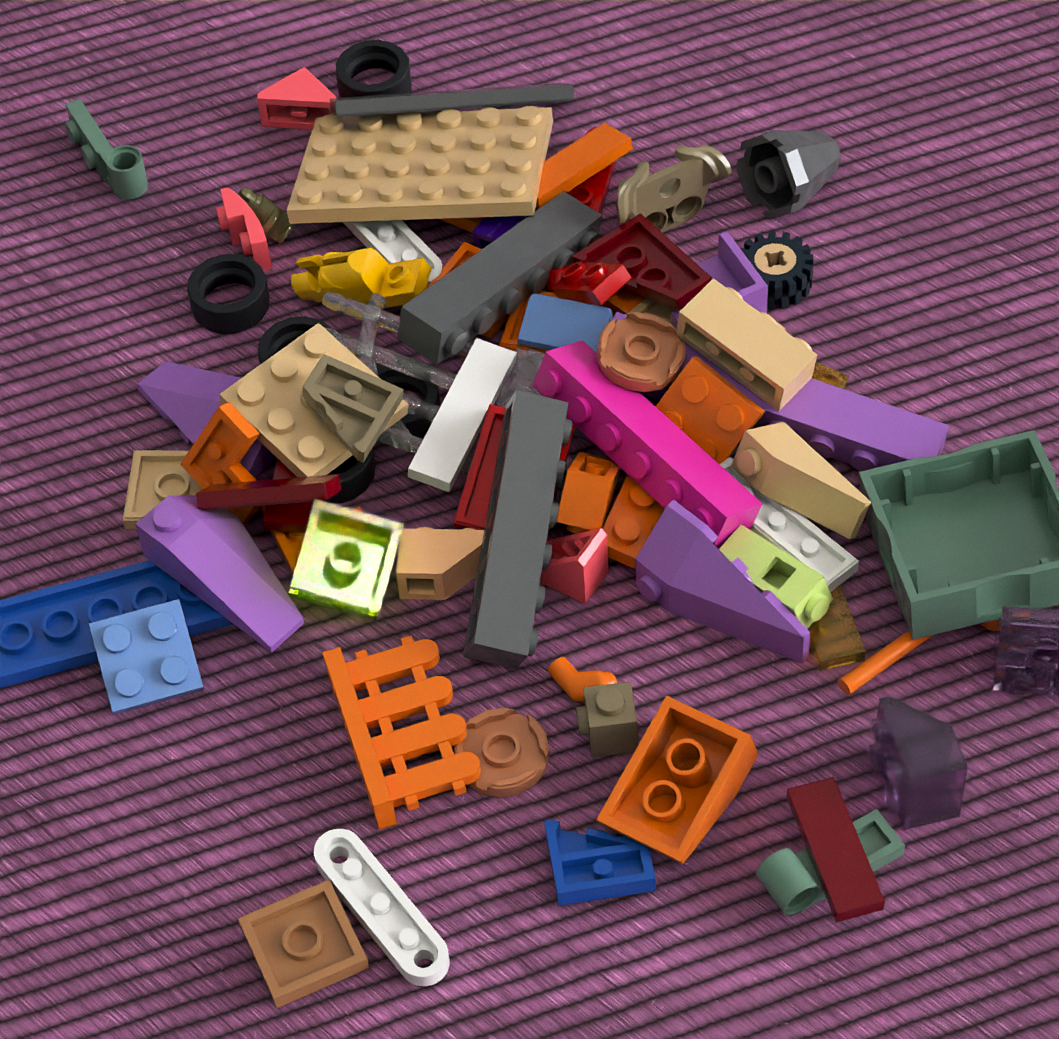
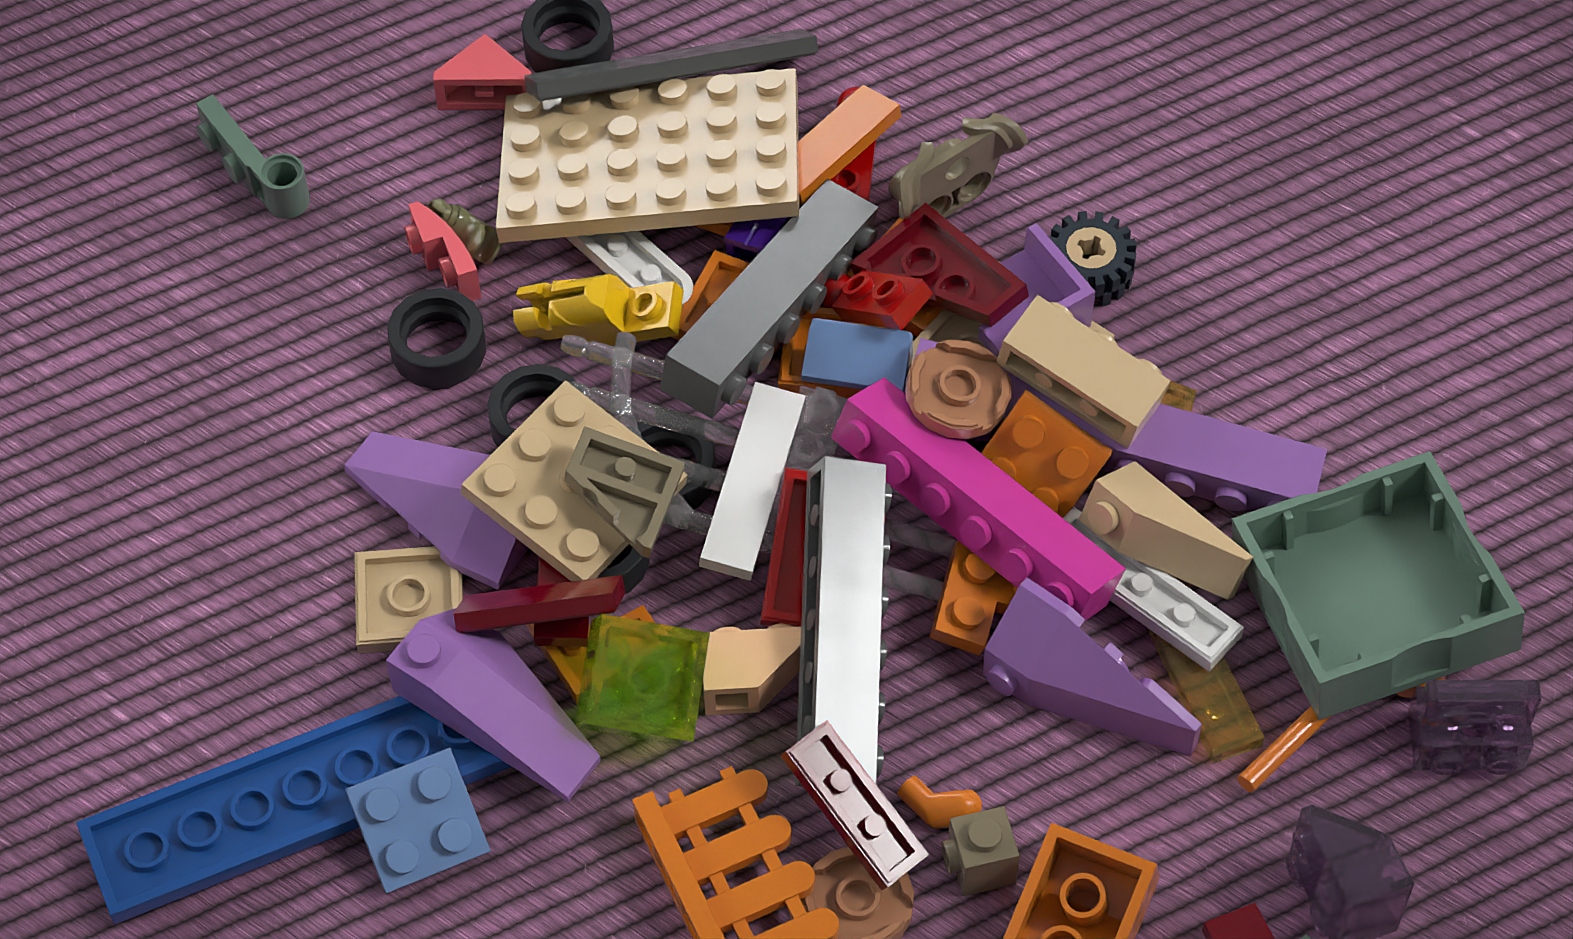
camera: 10 degrees left, 5 degrees up
(218, 454) = (467, 554): orange plate -> none
(505, 670) = (854, 805): none -> tile
(577, 564) = (915, 656): coral slope -> none
(588, 492) = (917, 568): orange slope -> none
(774, 570) = (1155, 654): yellowish green brick -> none
(786, 168) = (1086, 130): dark grey cone -> none

